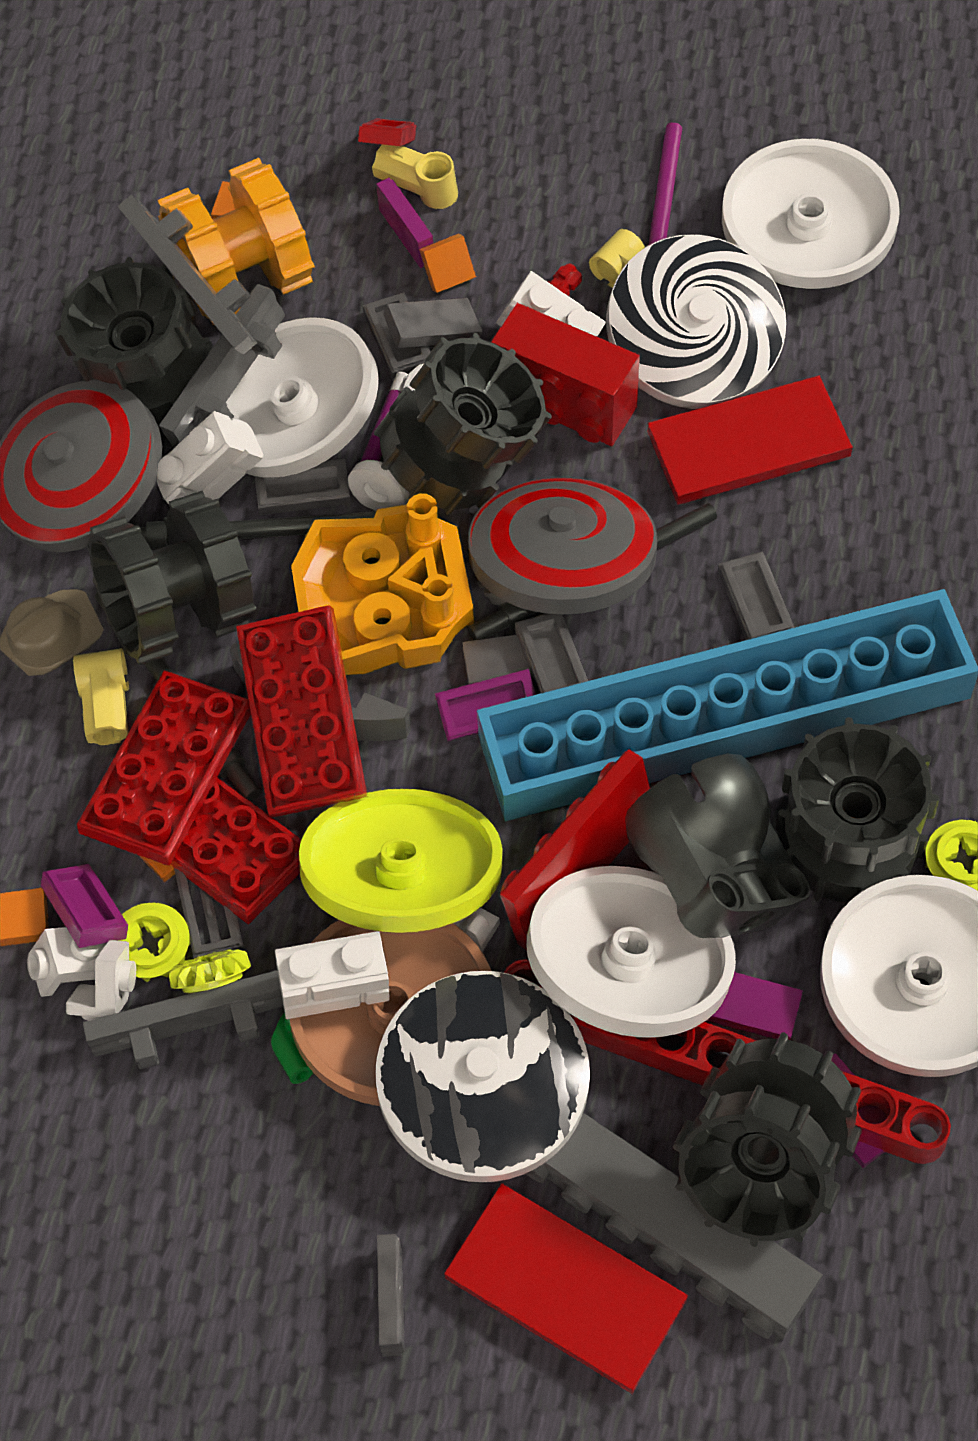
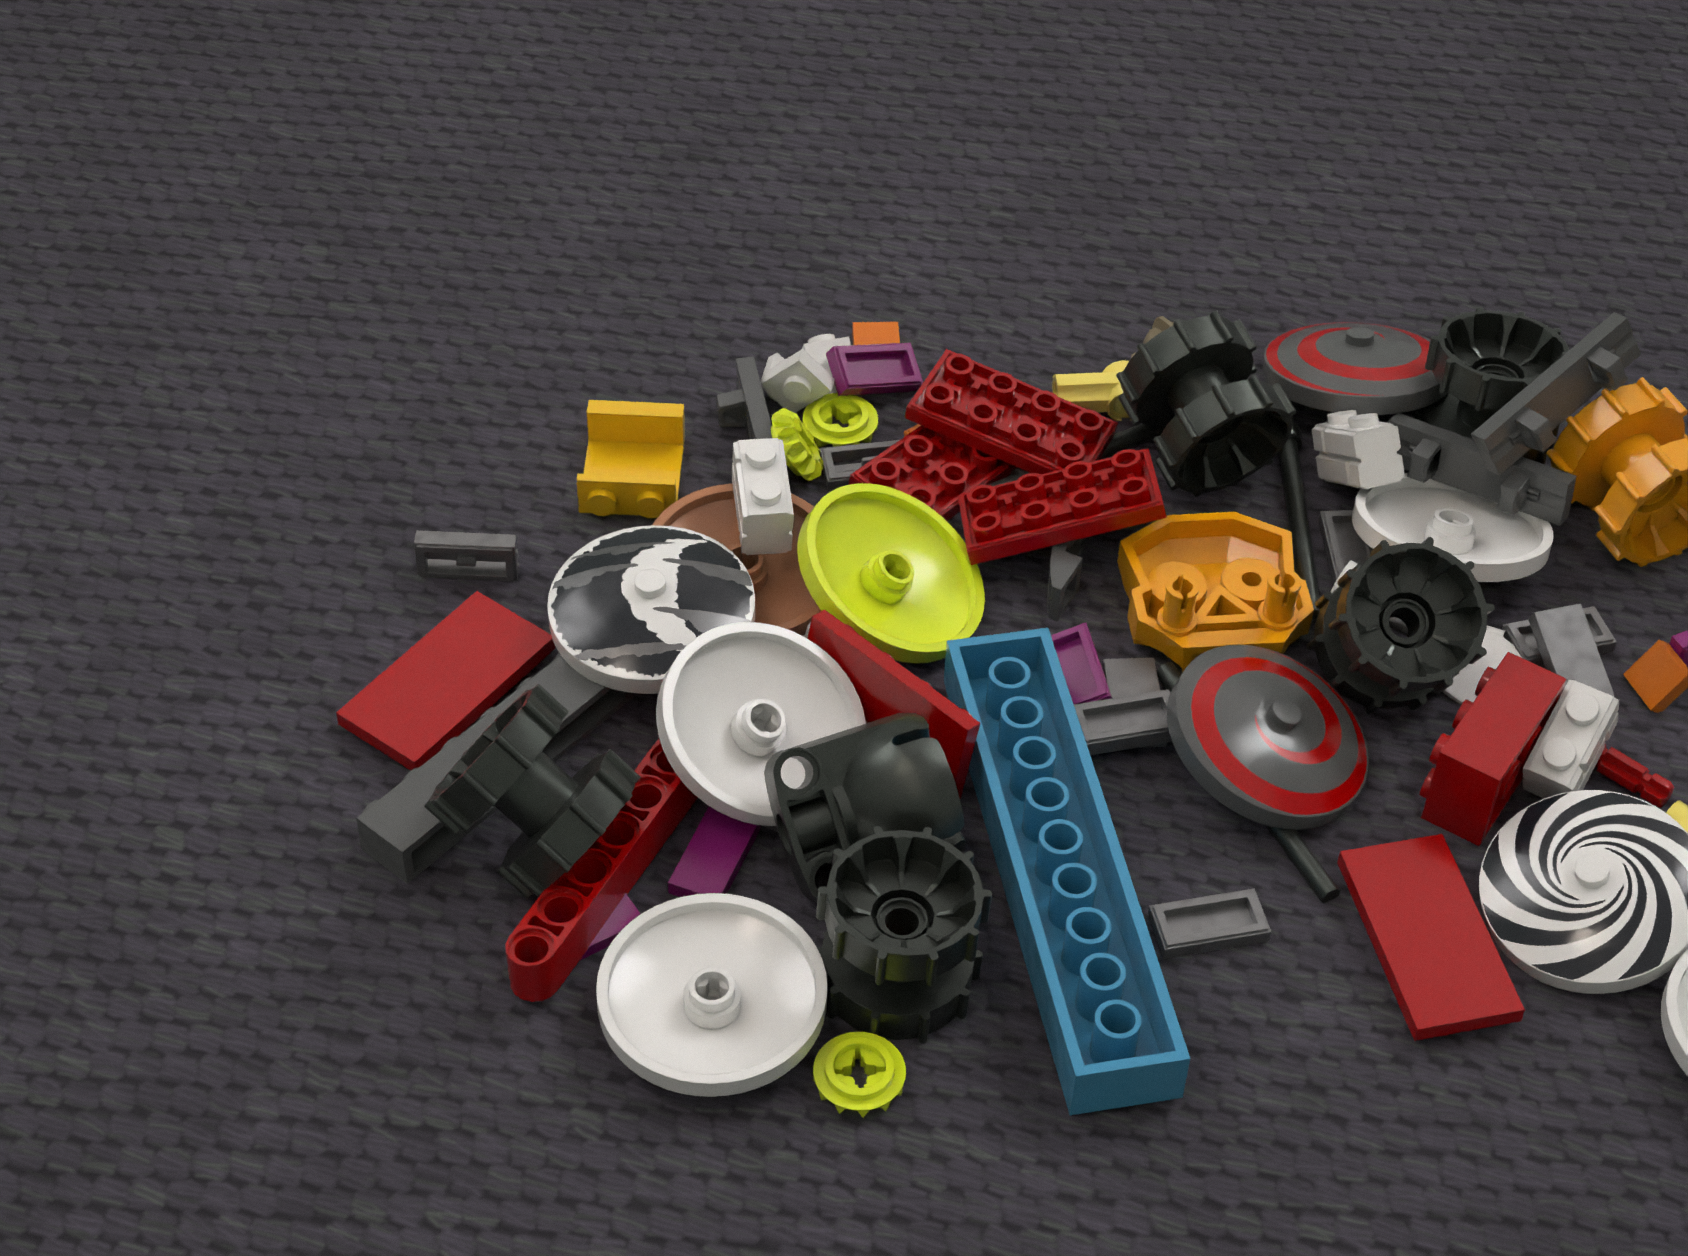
camera: 90 degrees right, 15 degrees down
(229, 1147) = (631, 458): none -> yellow panel

